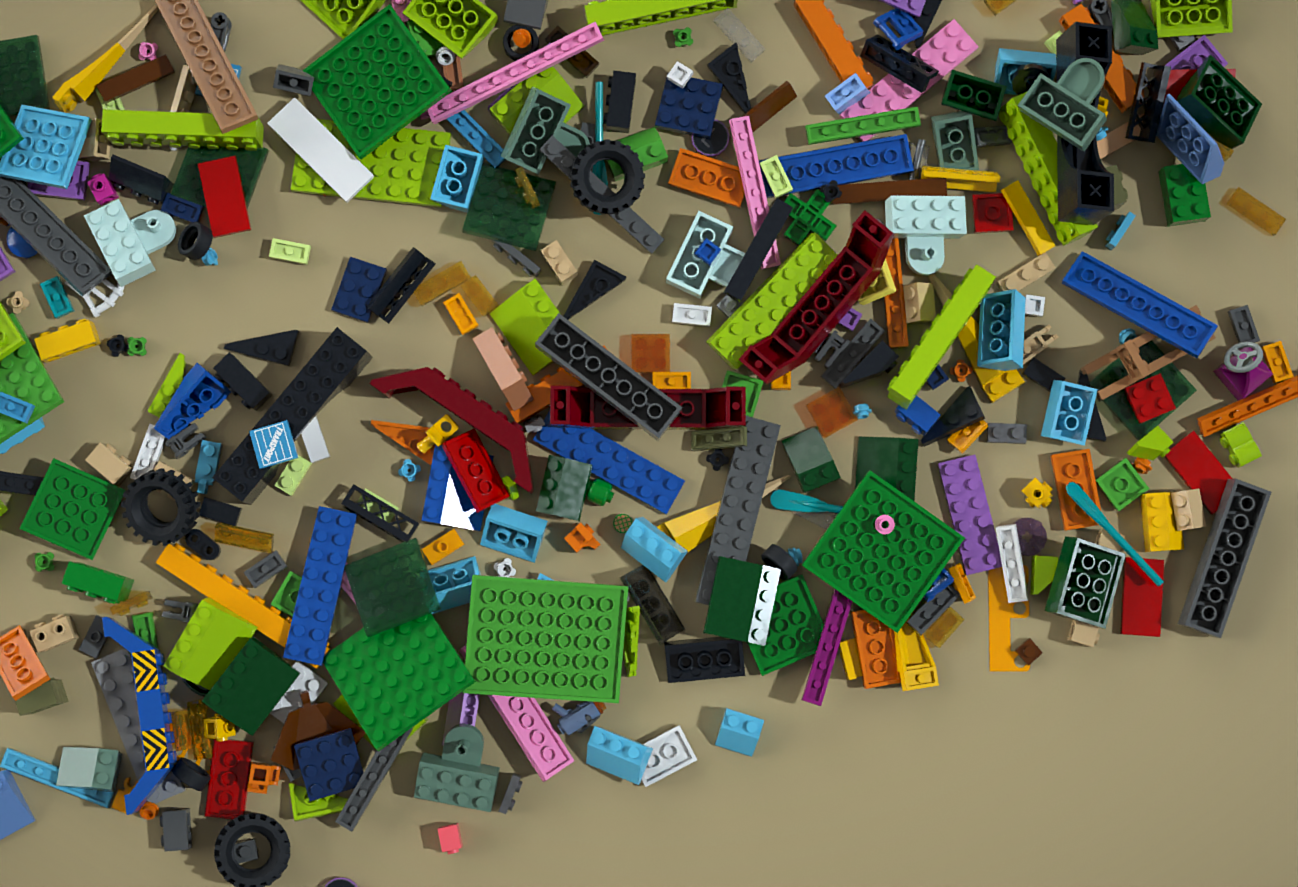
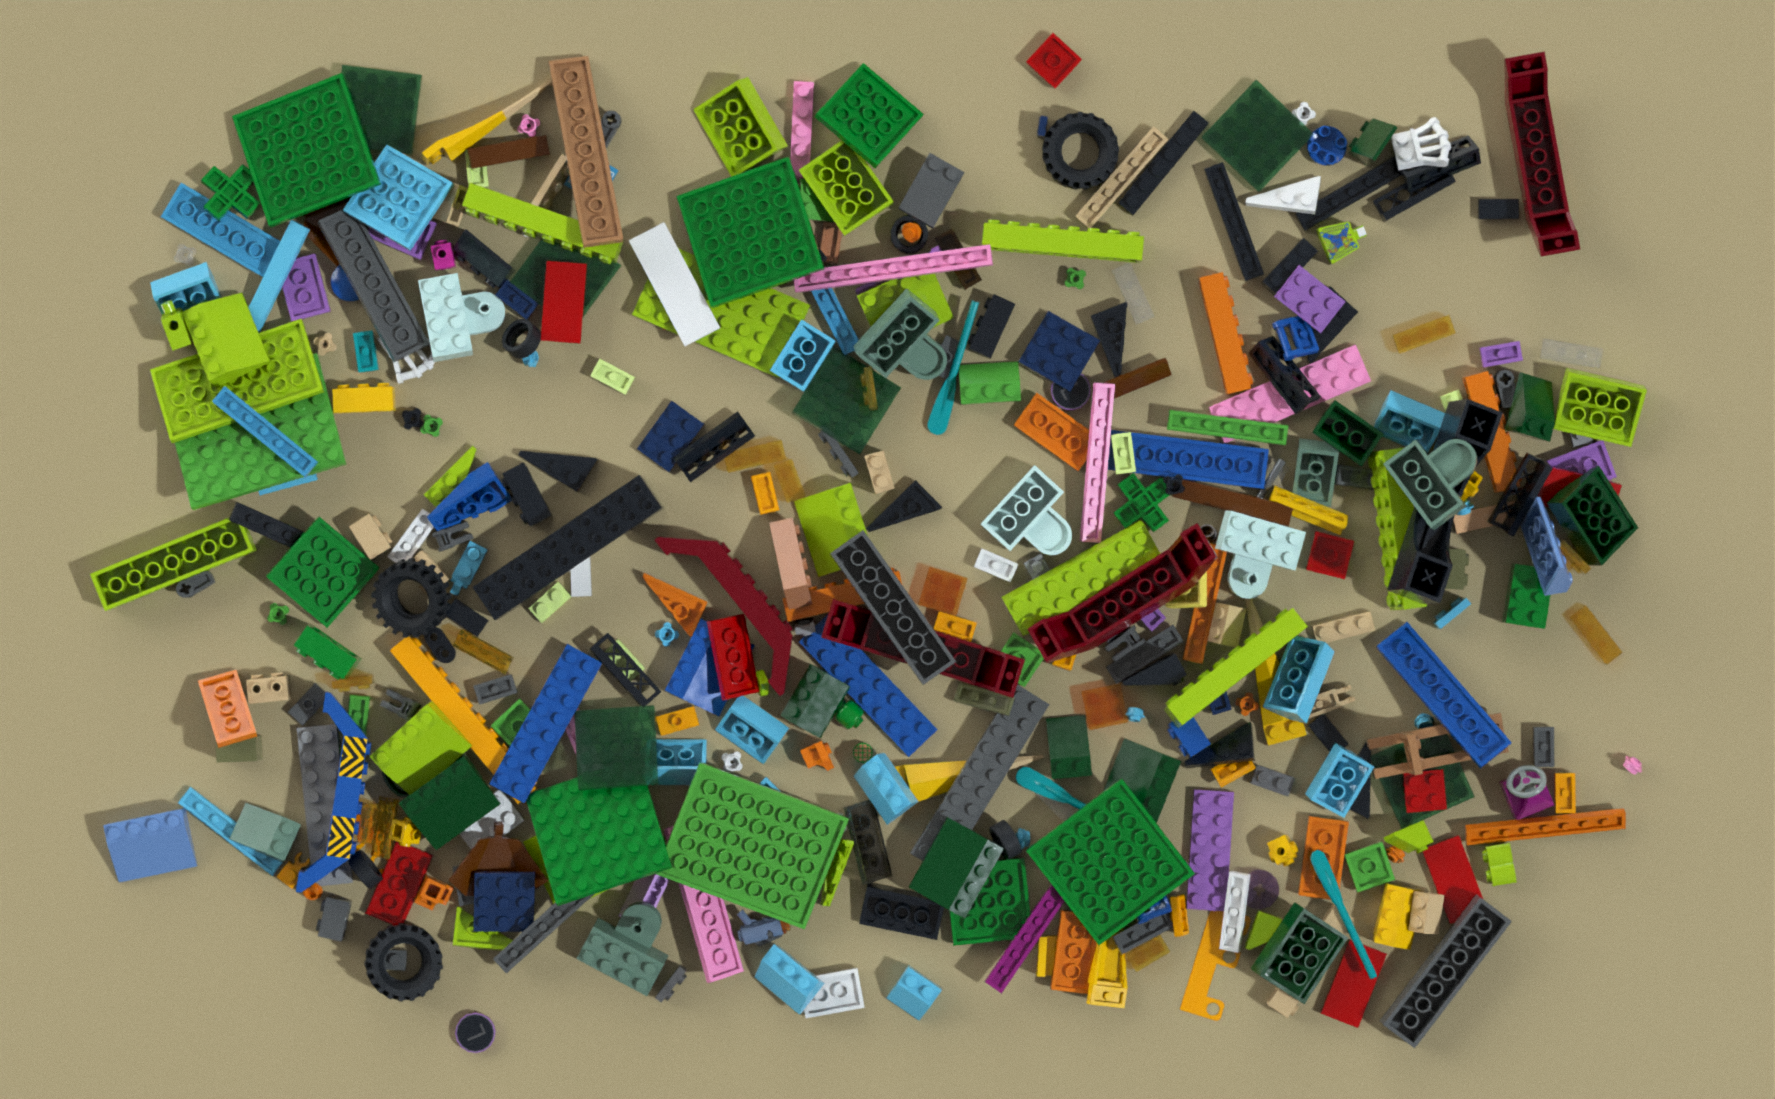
camera: 20 degrees right, 5 degrees up
(273, 444) = (543, 574): dark azure tile -> none
(293, 80) = (667, 203): dark grey slope -> none
(436, 435) = (705, 609): yellow bracket -> none
(445, 60) = (828, 226): white plate -> none
(450, 838) = (599, 1009): coral brick -> none
(626, 160) = (953, 432): black tyre -> none
(626, 219) = (942, 417): dark grey plate -> none
(680, 74) = (1059, 319): white plate -> none
(707, 251) = (1030, 510): blue tile -> none
(717, 464) = (982, 720): black plate -> none
(758, 250) = (1081, 523): black tile -> none
(847, 93) = (1221, 390): light blue panel -> none
(880, 519) = (1119, 830): bright pink plate -> none
(1026, 73) = (1409, 426): black plate -> none
(1028, 218) = (1363, 571): yellow tile -> none
(1028, 651) = (1223, 1002): reddish brown plate -> none
(1034, 305) = (1341, 661): white plate -> none

